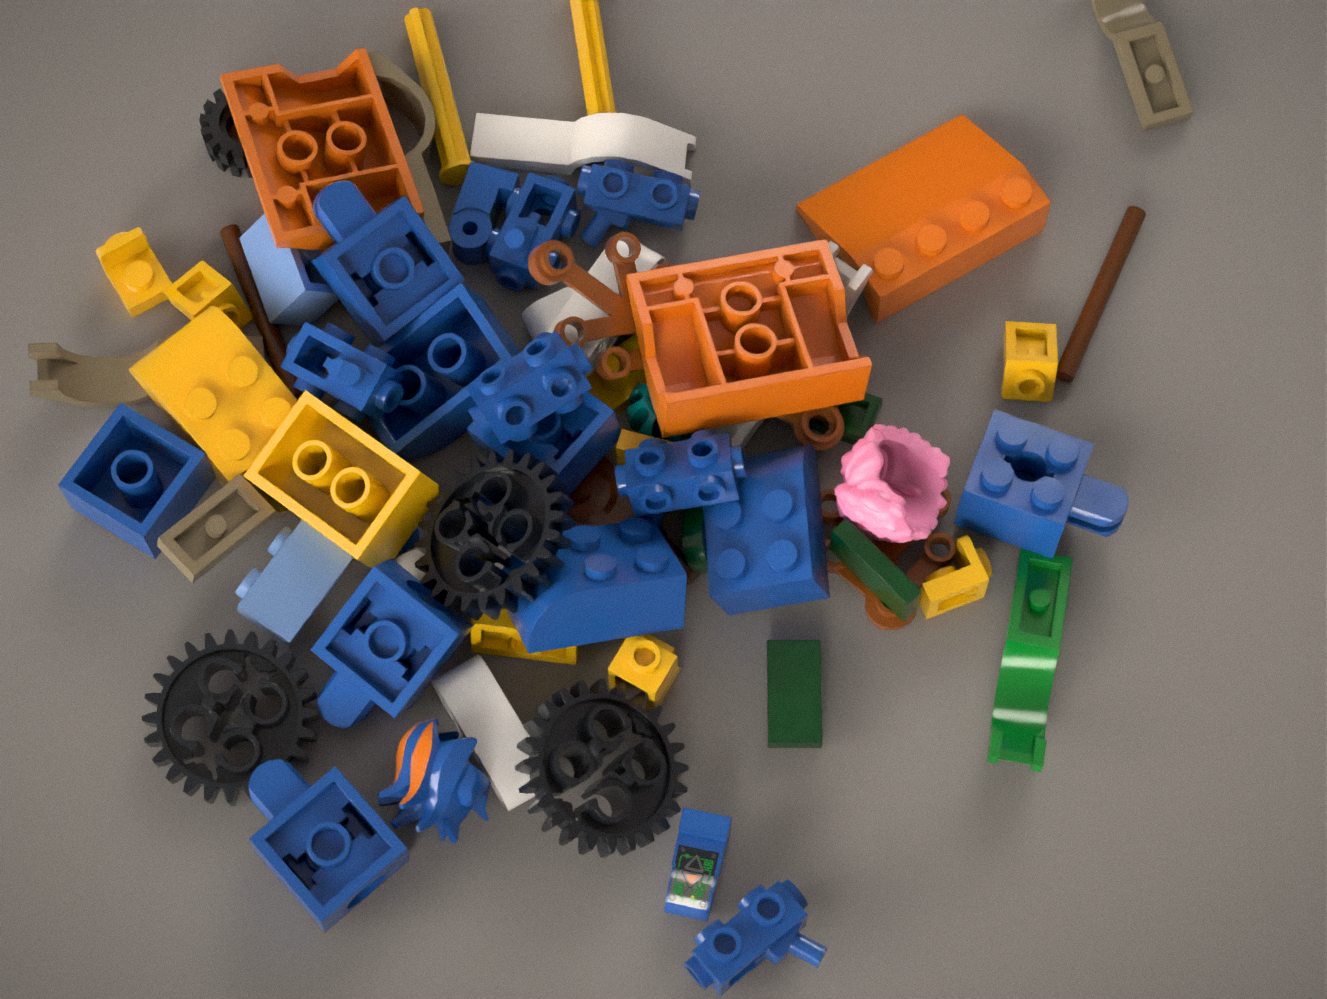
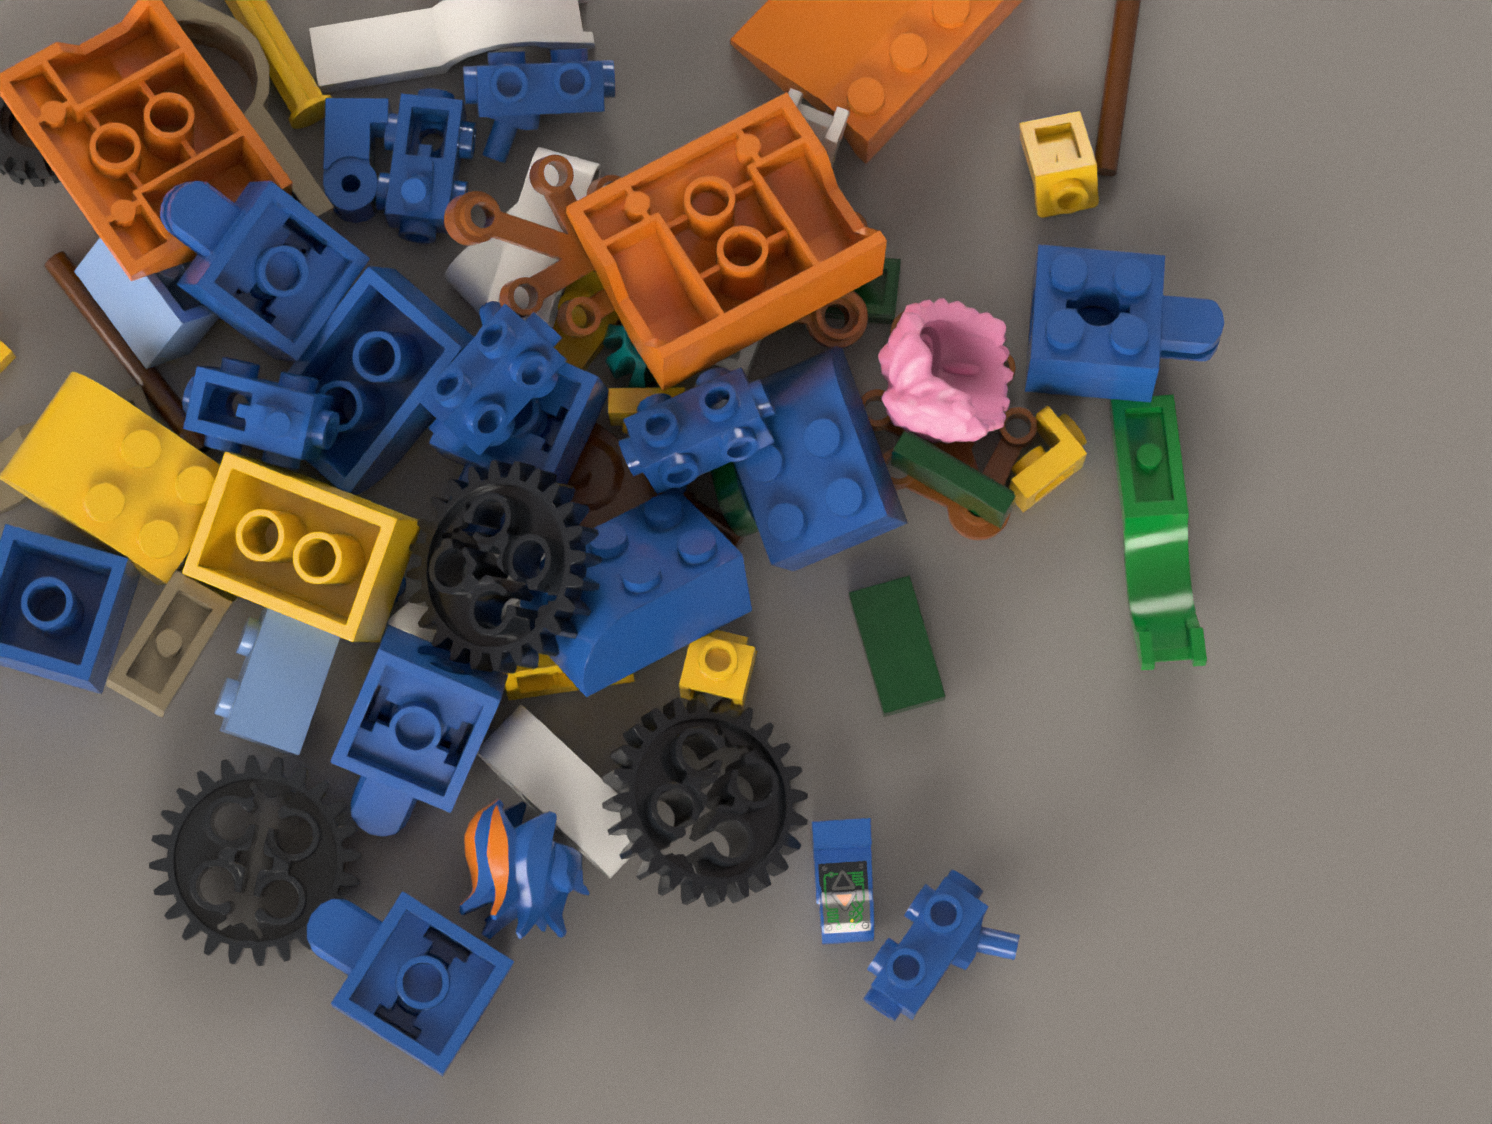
camera: 15 degrees left, 10 degrees up
(206, 287) = (52, 350): yellow bracket -> none

